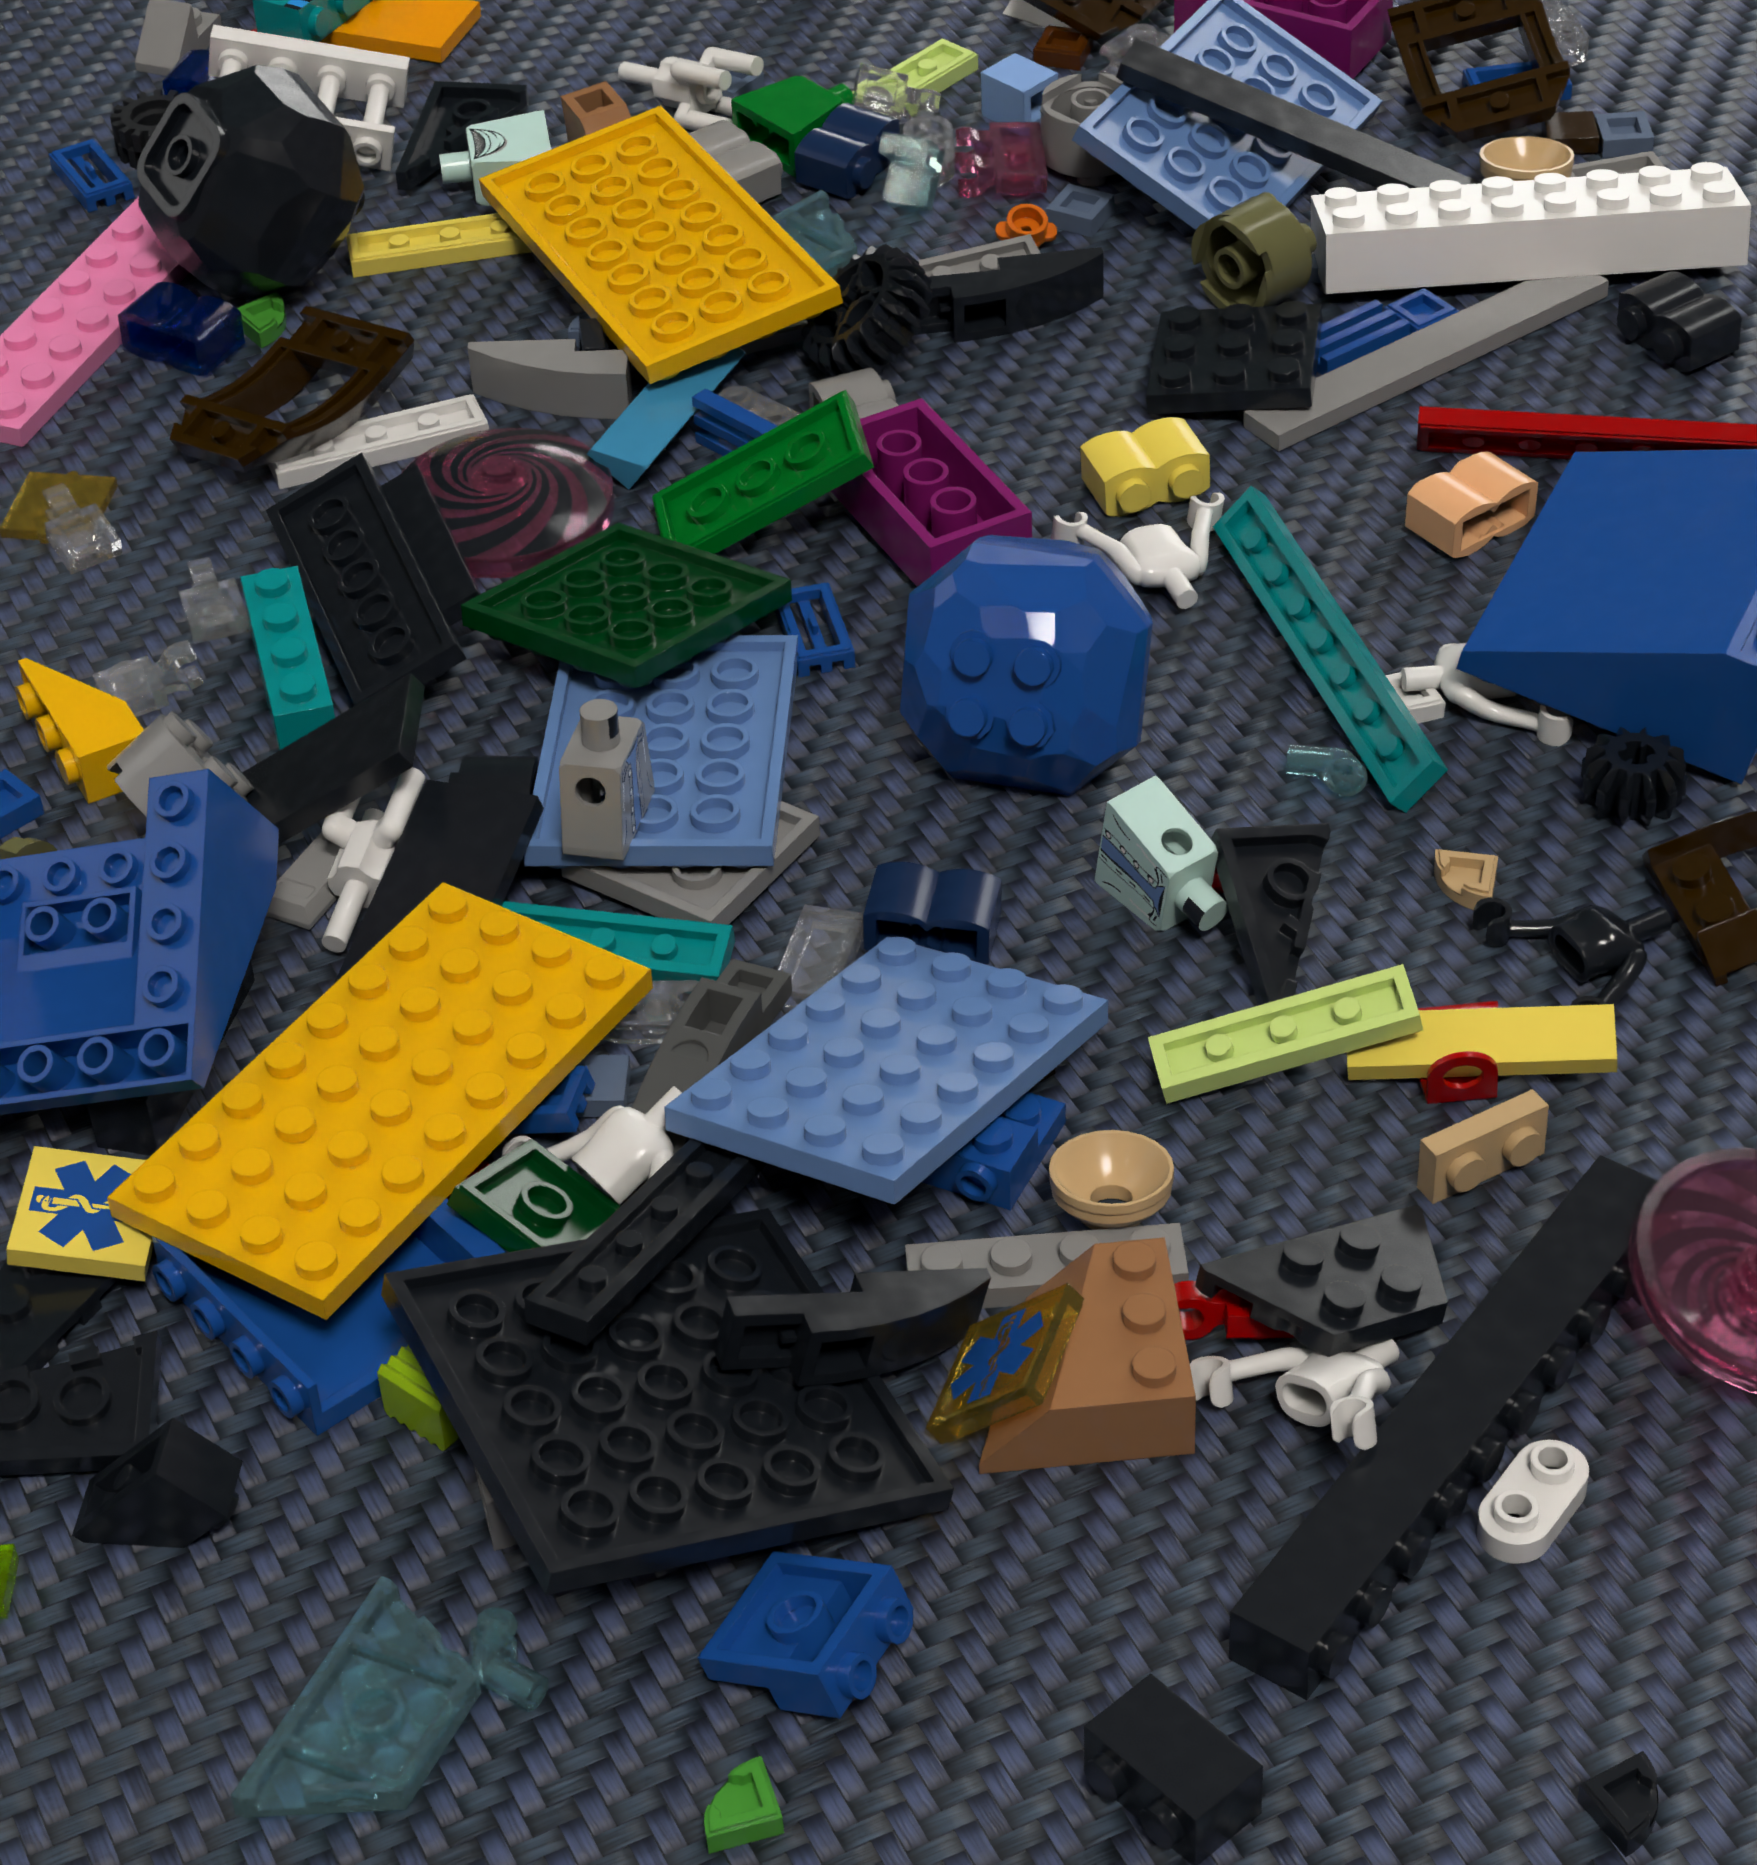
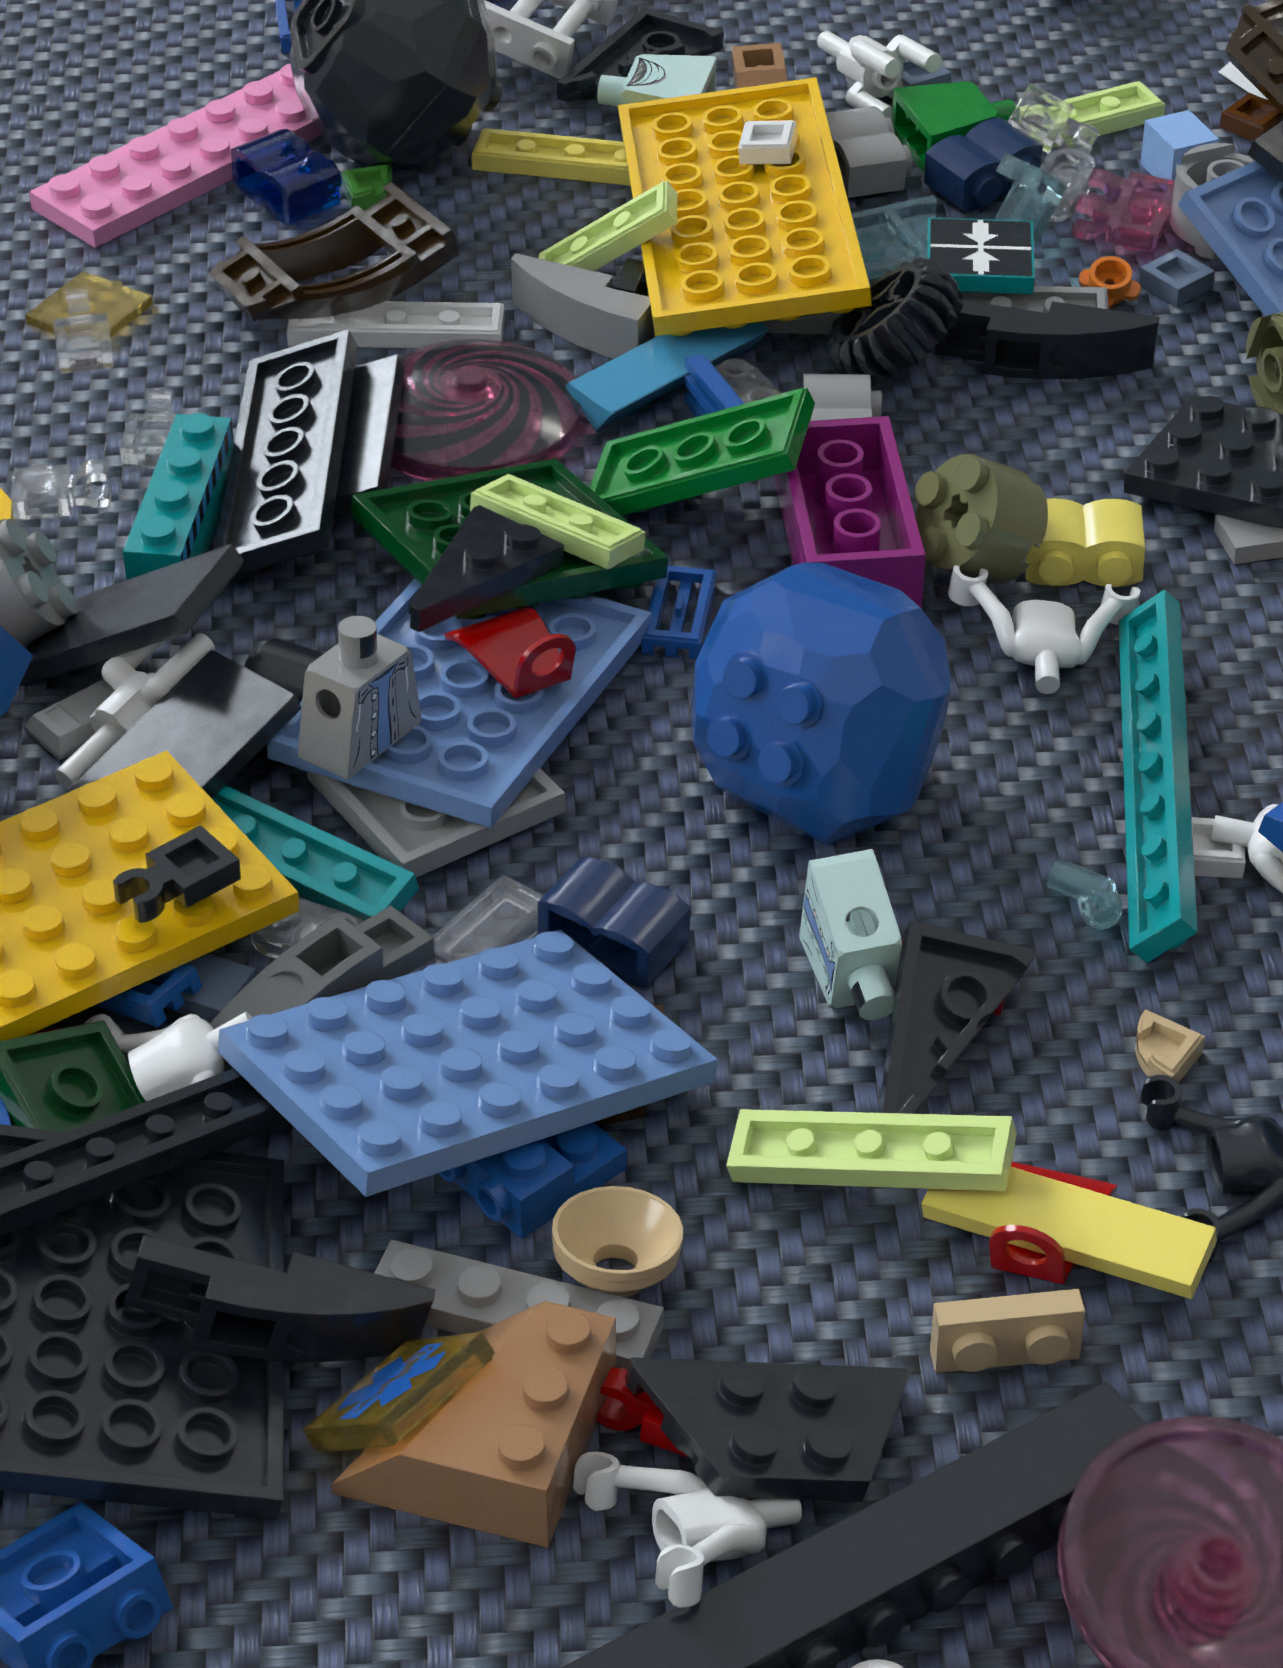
camera: 20 degrees right, 0 degrees up
(546, 976) = (179, 870): none -> black plate
(557, 295) = (618, 230): none -> yellowish green tile
(641, 629) = (481, 563): none -> black wing
(656, 176) = (768, 142): none -> white tile
(672, 574) = (578, 527): none -> yellowish green tile
(707, 700) = (518, 651): none -> red piece
(910, 222) = (984, 253): none -> tile
(1057, 464) = (980, 517): none -> olive brick

